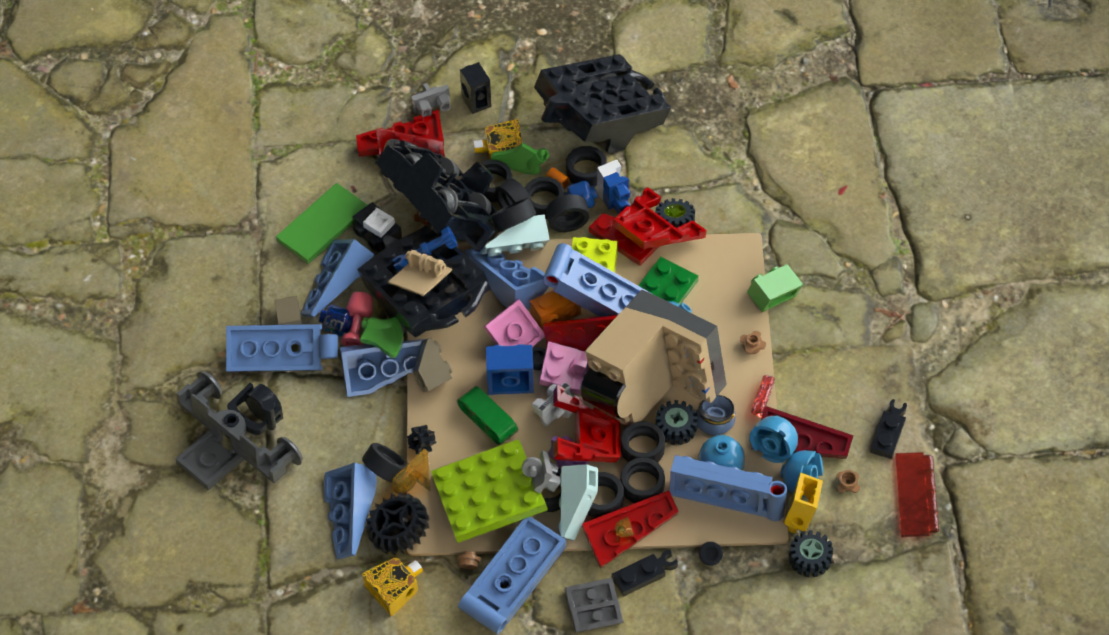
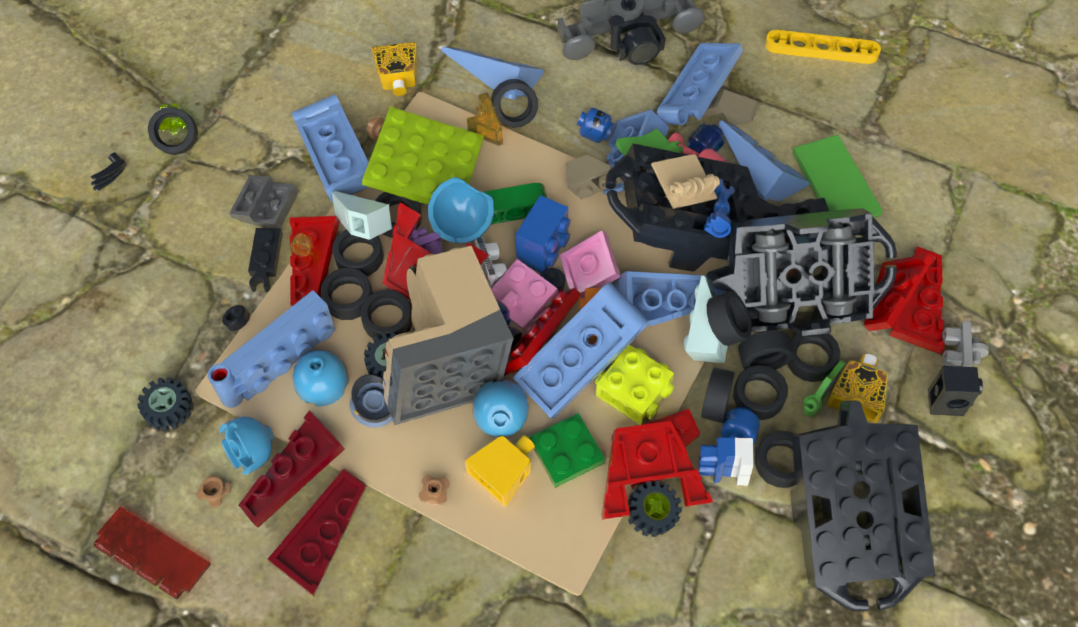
camera: 120 degrees right, 5 degrees up
(180, 295) = (832, 42): none -> yellow beam
(366, 402) = (595, 125): none -> blue head
(378, 222) = (796, 205): white plate -> none
(397, 523) = (447, 89): black gear -> none
(421, 439) = (519, 139): black gear -> none
(530, 422) = (460, 211): none -> dark azure cylinder
(542, 472) = (388, 188): light grey hips -> none
(559, 176) = (782, 421): orange hinge -> none
(712, 306) = (501, 467): none -> yellow torso
(763, 395) = (364, 462): clear red axle -> none
(774, 287) = (488, 554): brick -> none
(774, 438) = (288, 422): dark azure cylinder -> none
(800, 512) = (201, 407): yellow torso -> none
(839, 399) = (315, 538): none -> dark red wing
(889, 431) = (239, 574): black plate -> none

